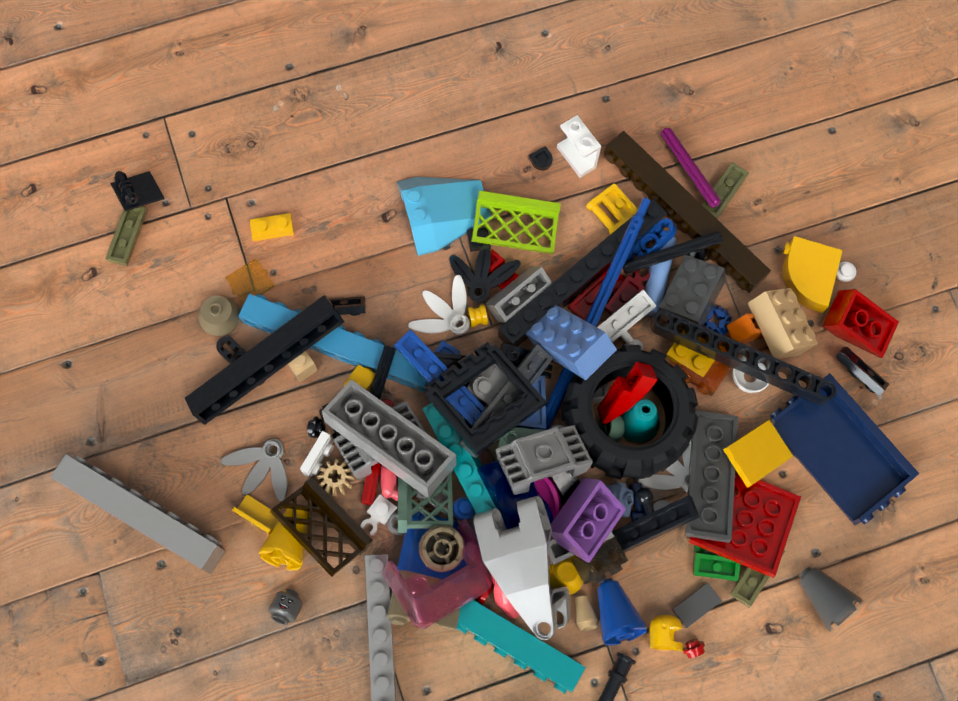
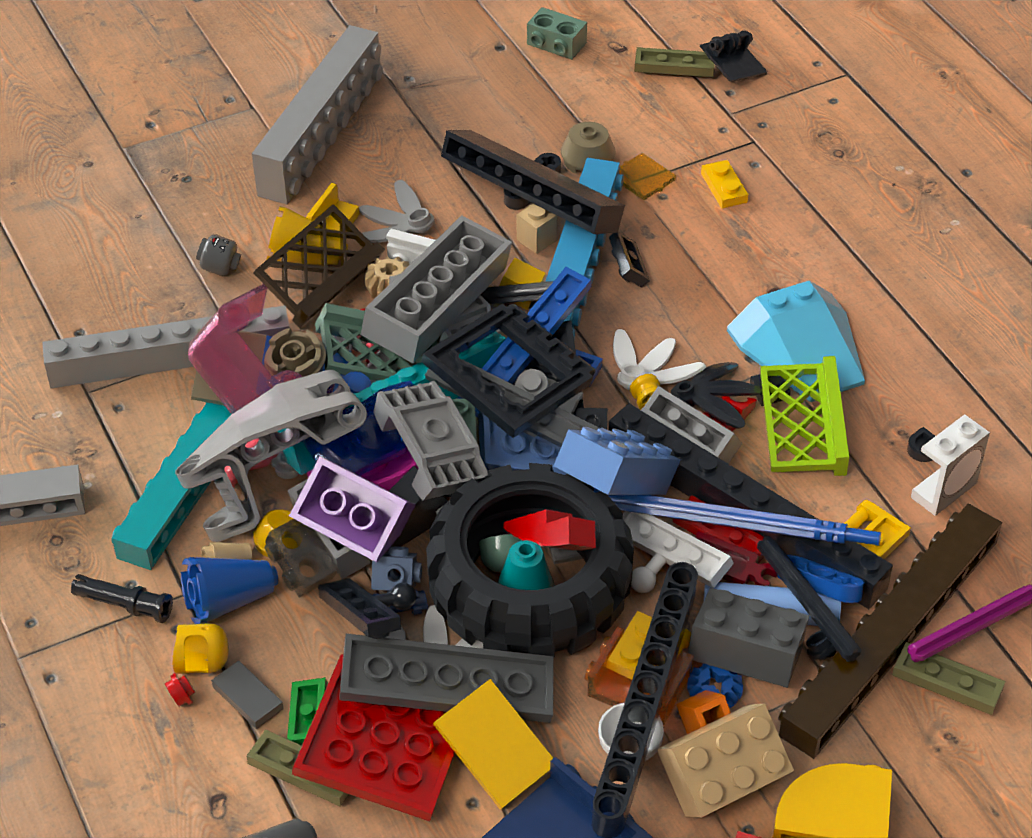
camera: 85 degrees right, 25 degrees down
(66, 313) = (557, 33): none -> sand green brick

